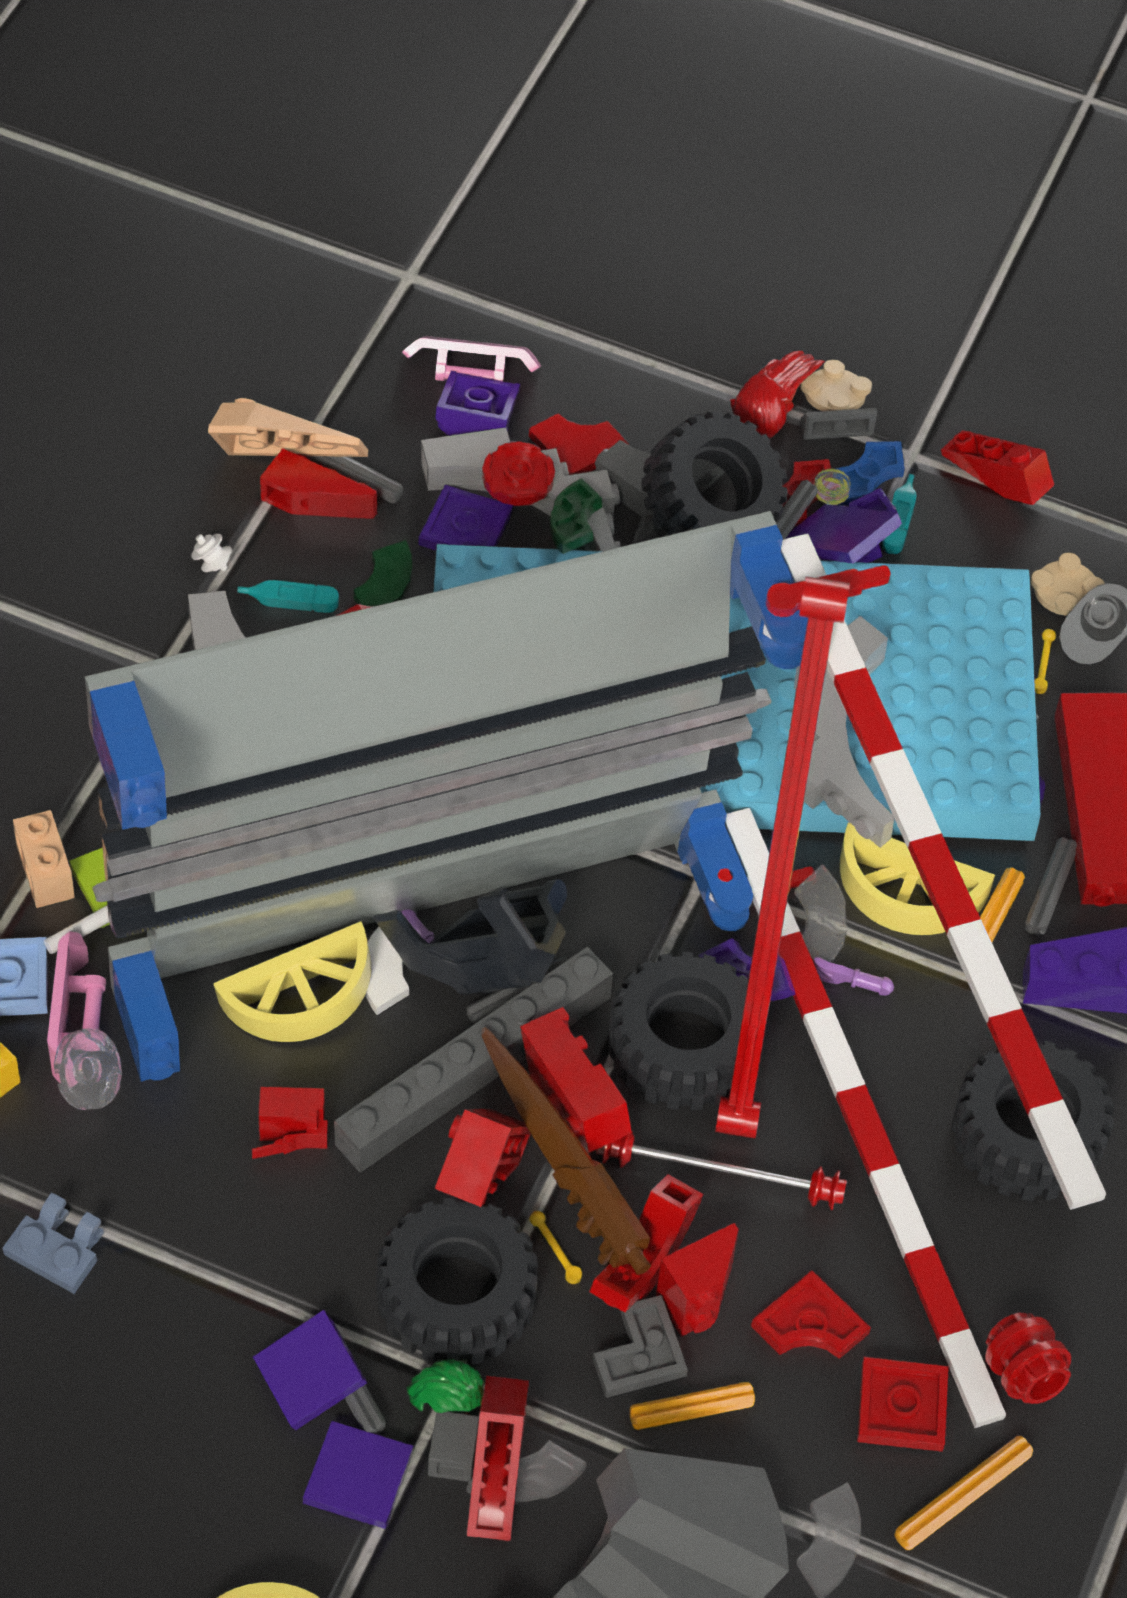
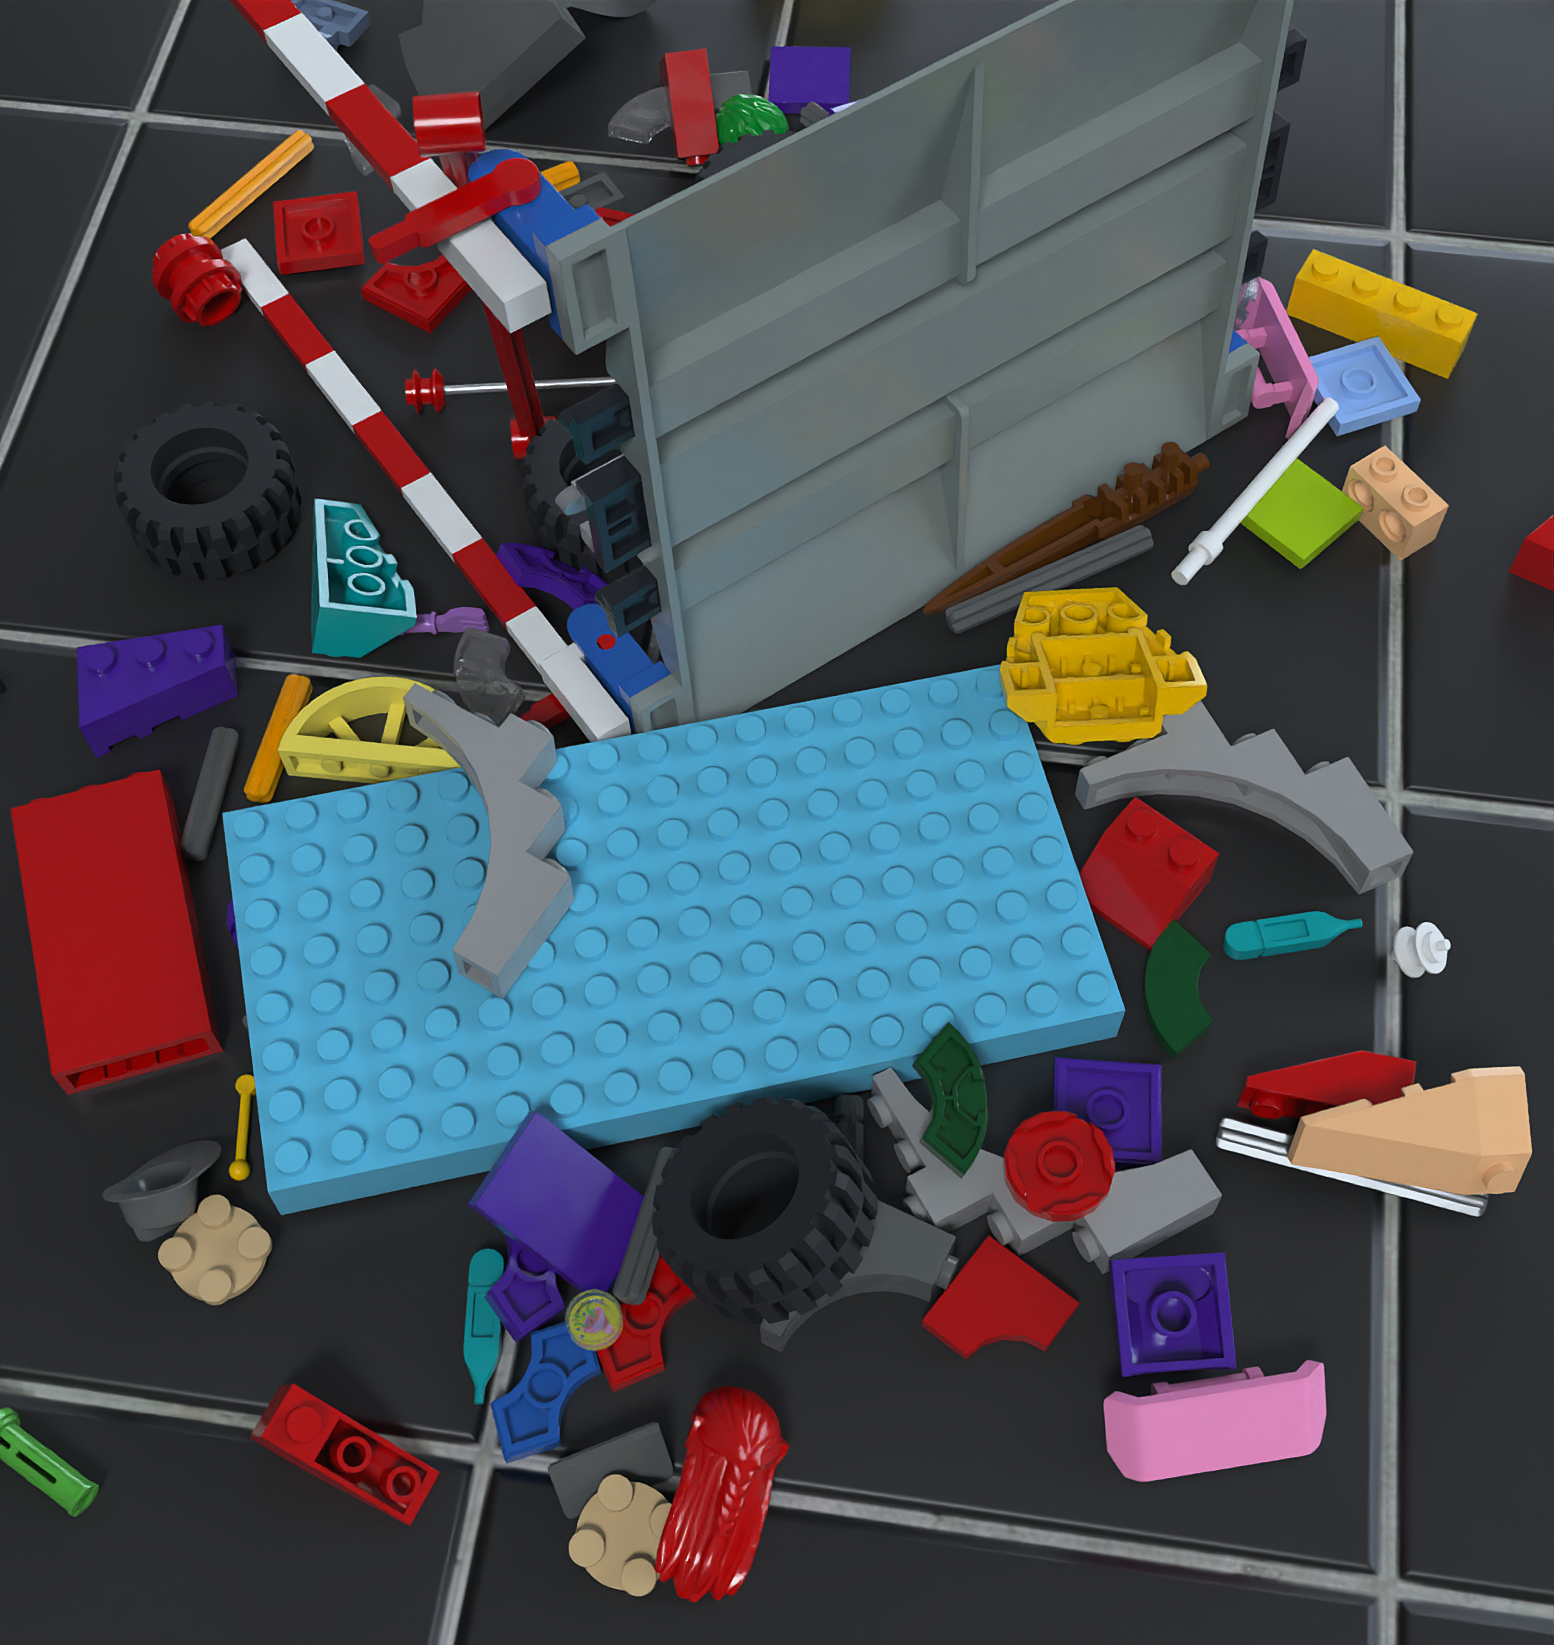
camera: 170 degrees right, 5 degrees up
(916, 1014) = (355, 585): none -> teal wedge

